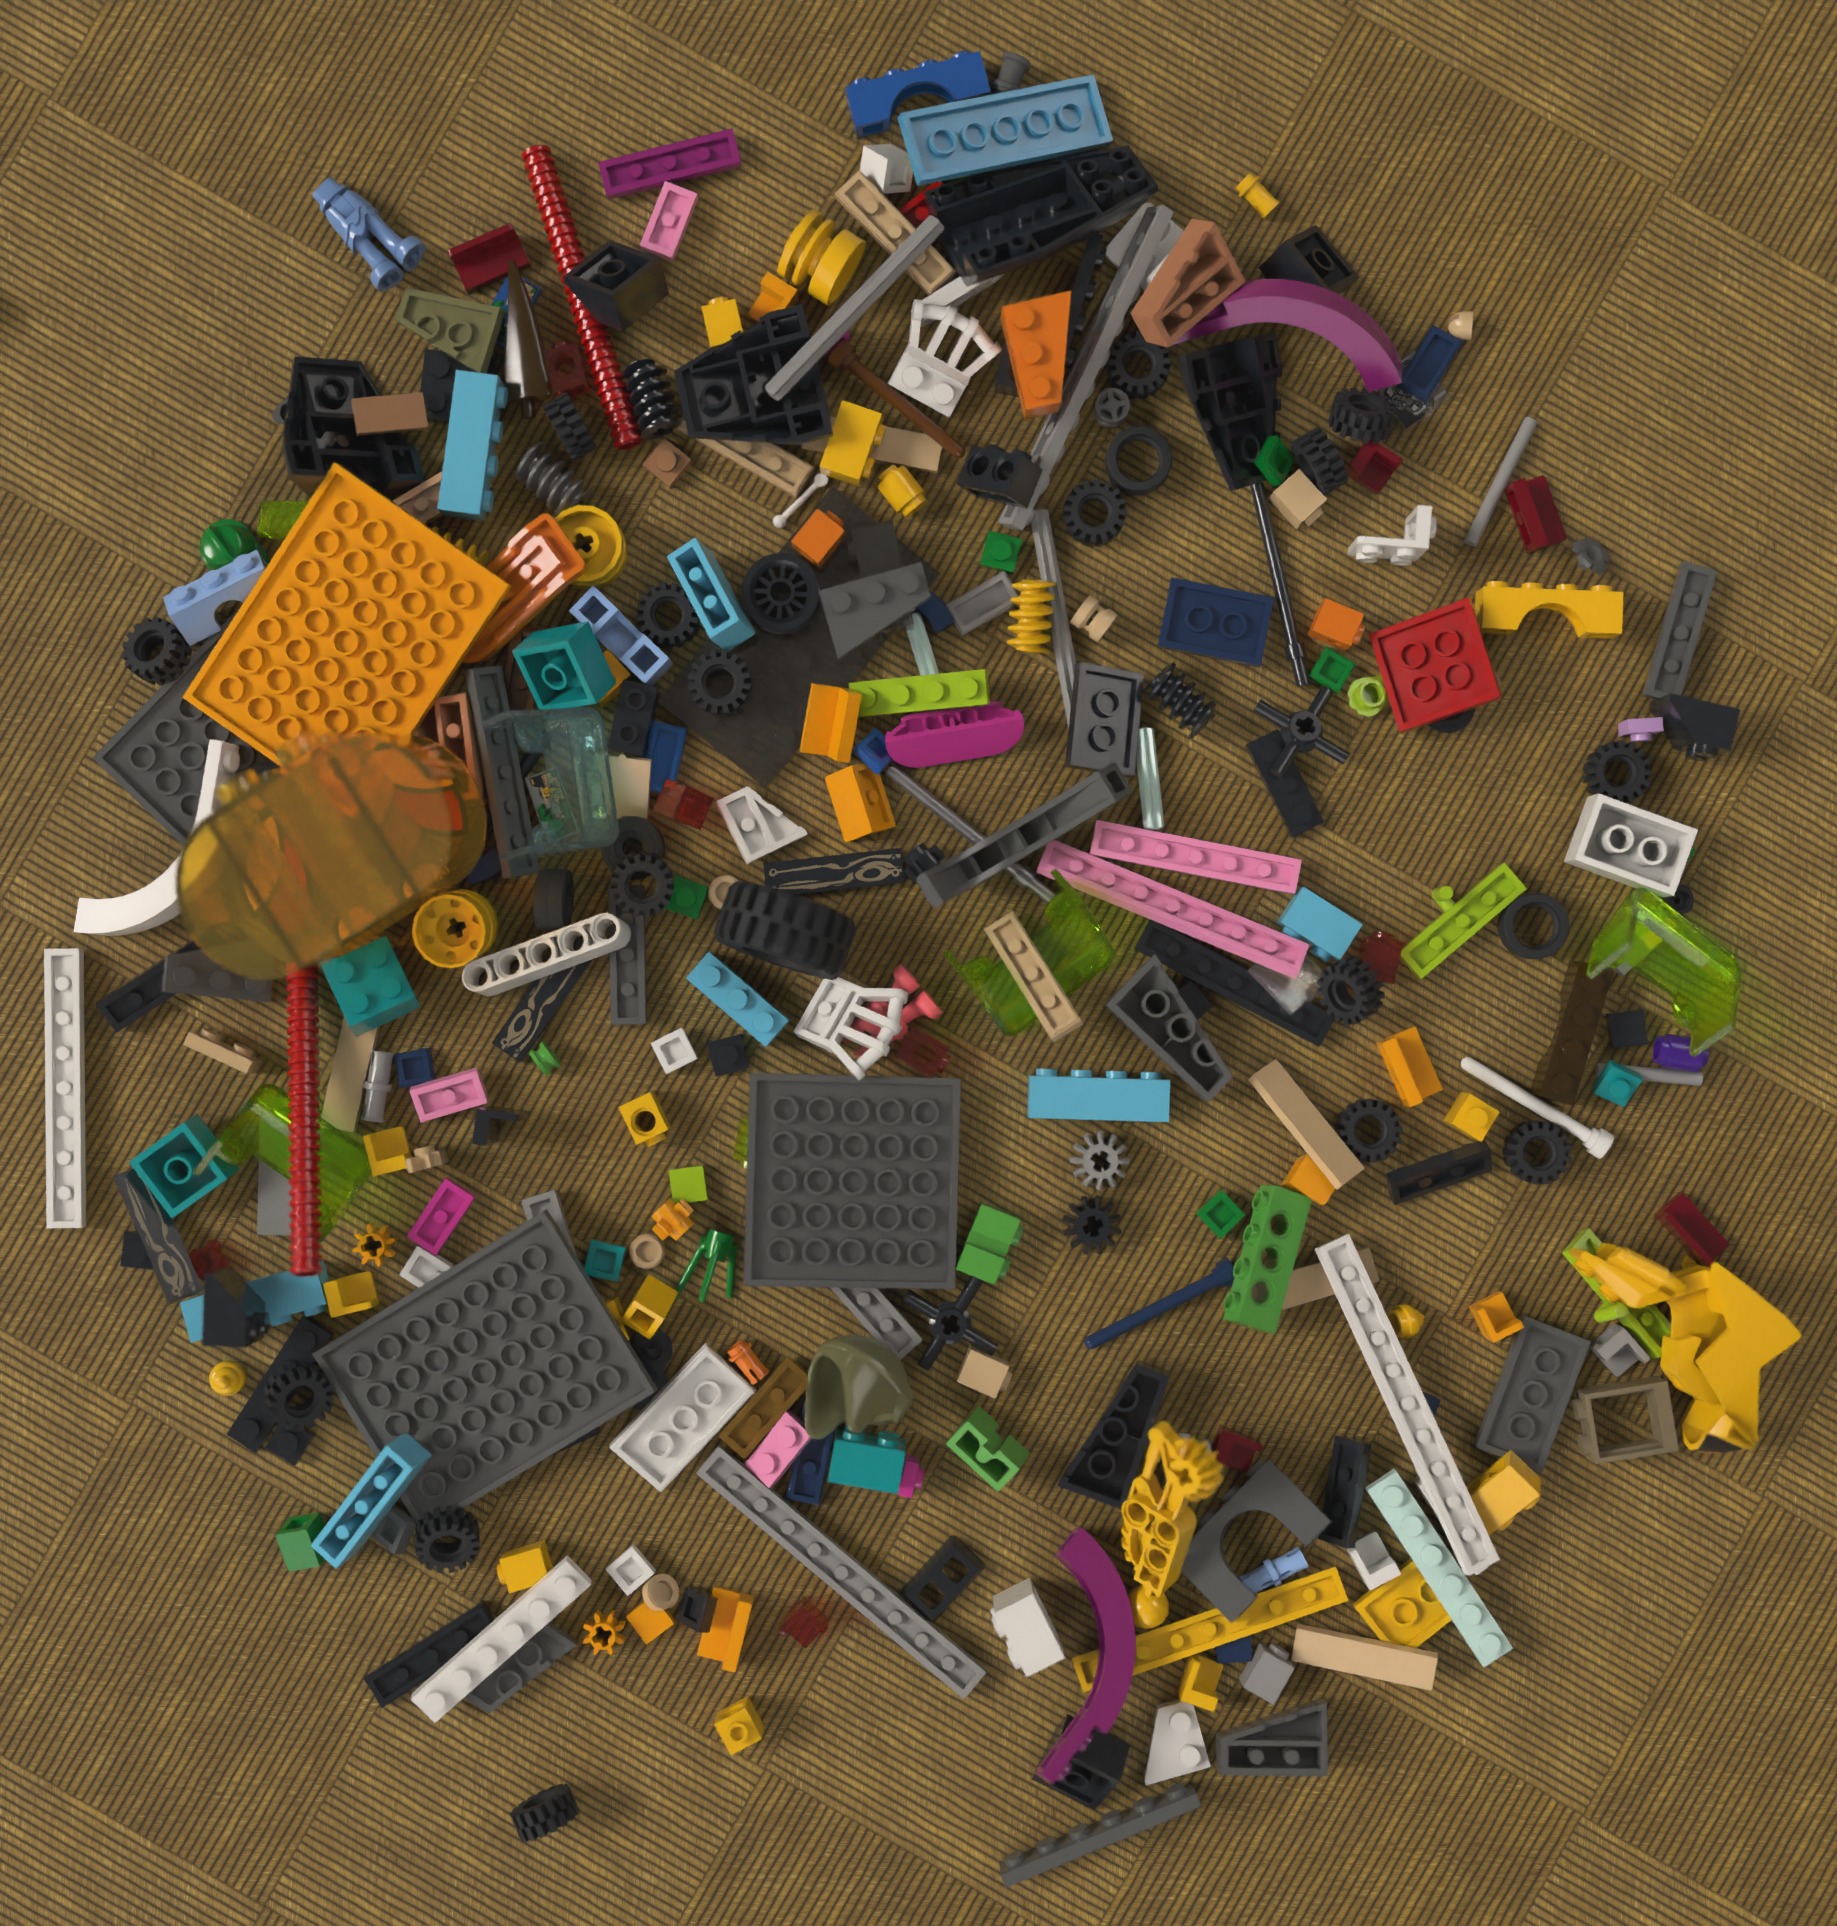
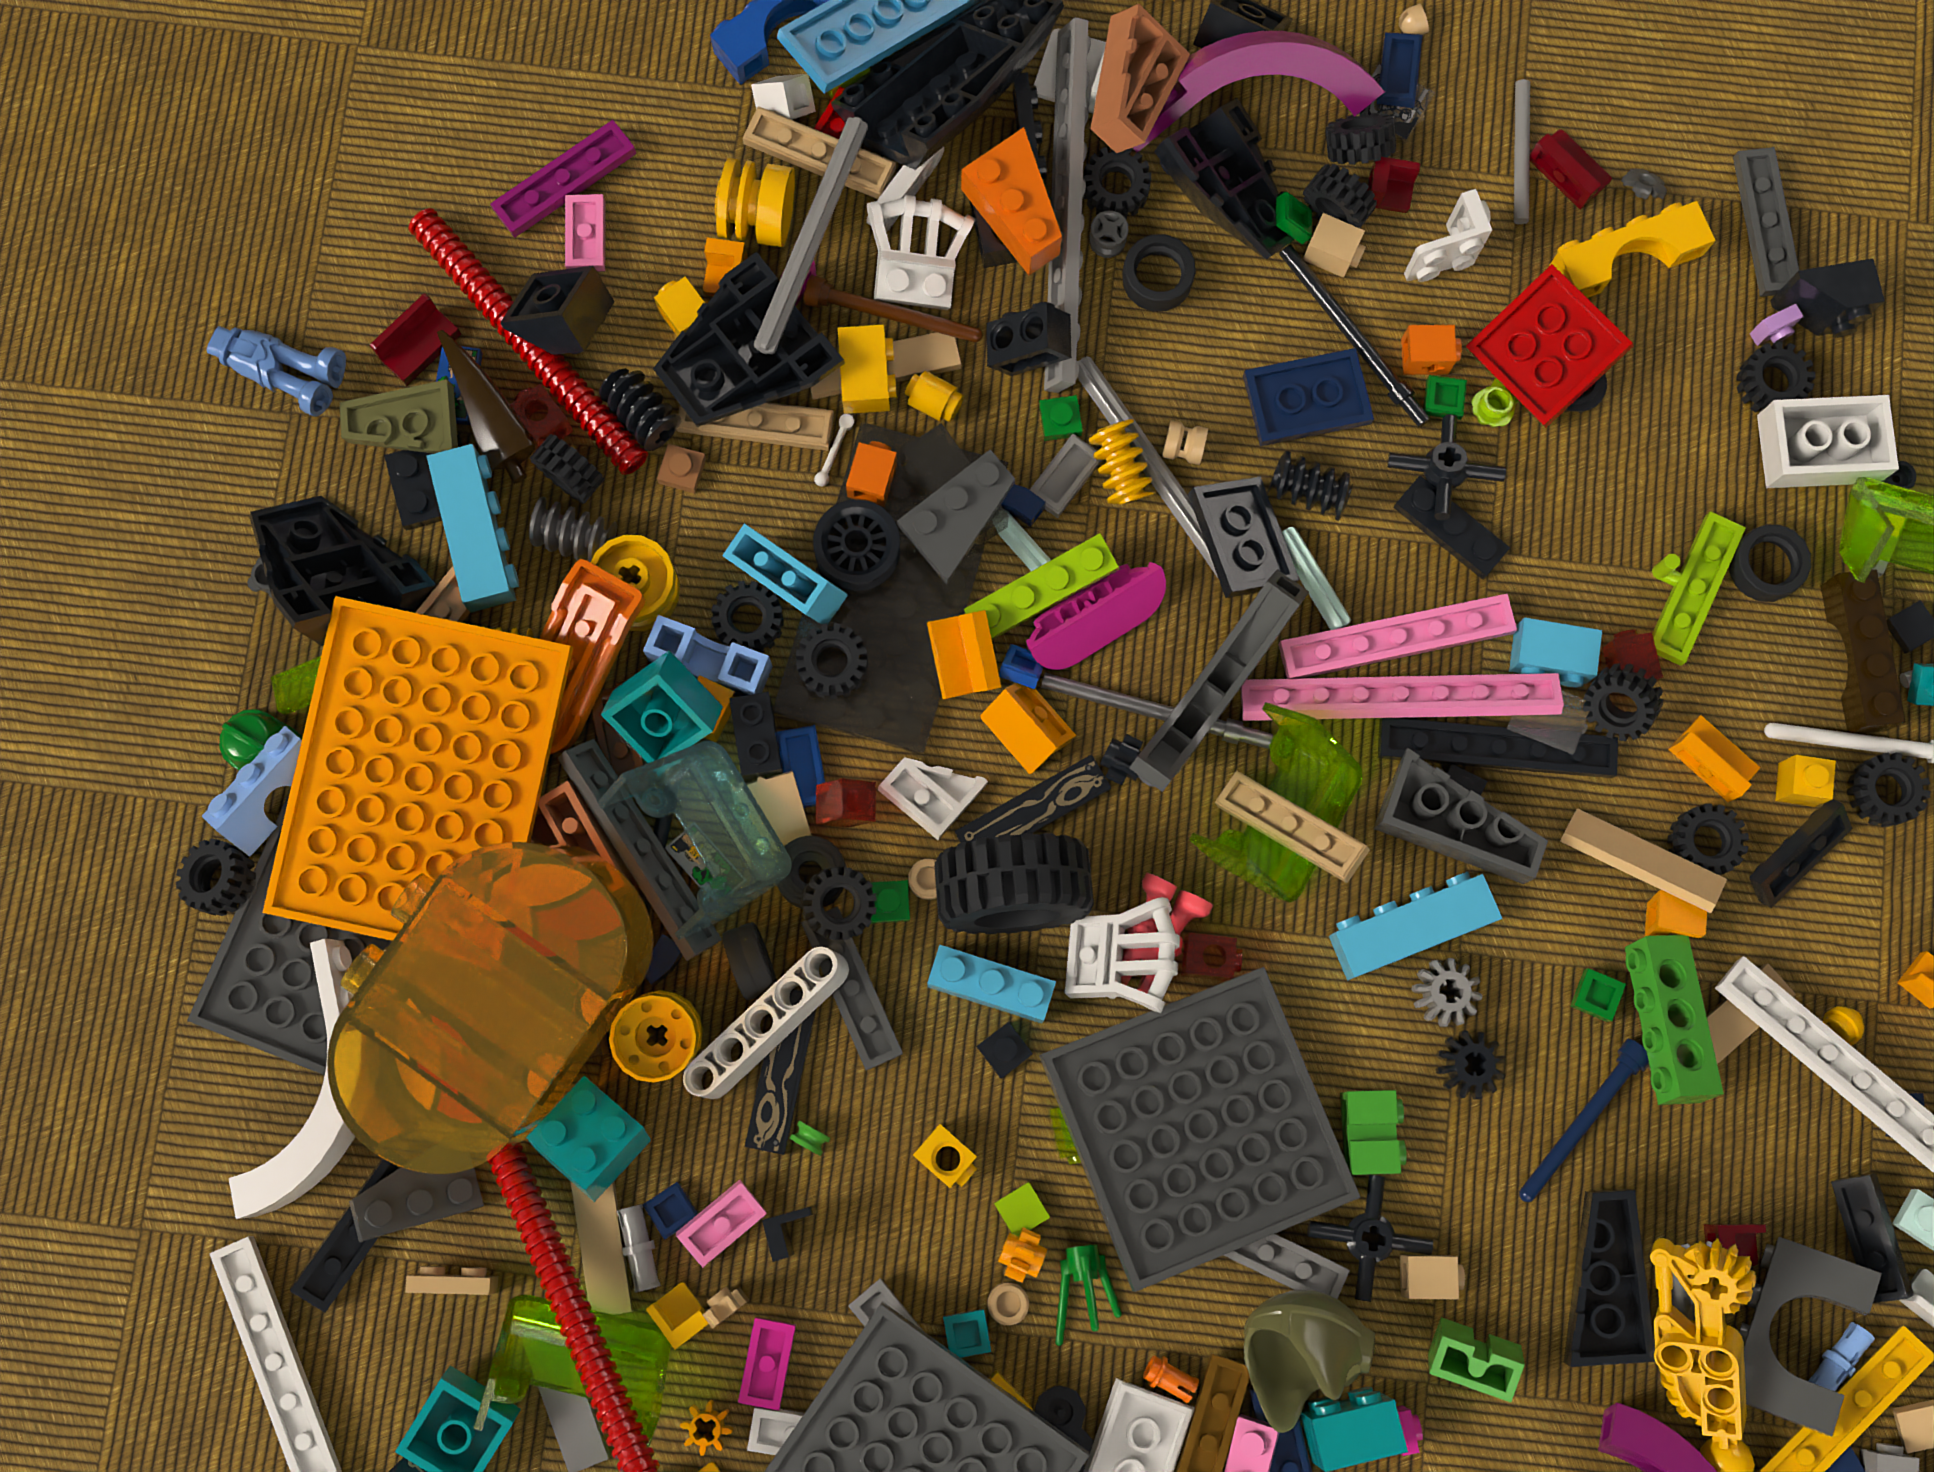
camera: 25 degrees left, 10 degrees down
(389, 414) = (372, 531): medium nougat tile -> none
(649, 1306) = (1039, 1363): yellow brick -> none
(674, 1050) = (945, 1069): white plate -> none
(1100, 492) = (1137, 319): black tyre -> none

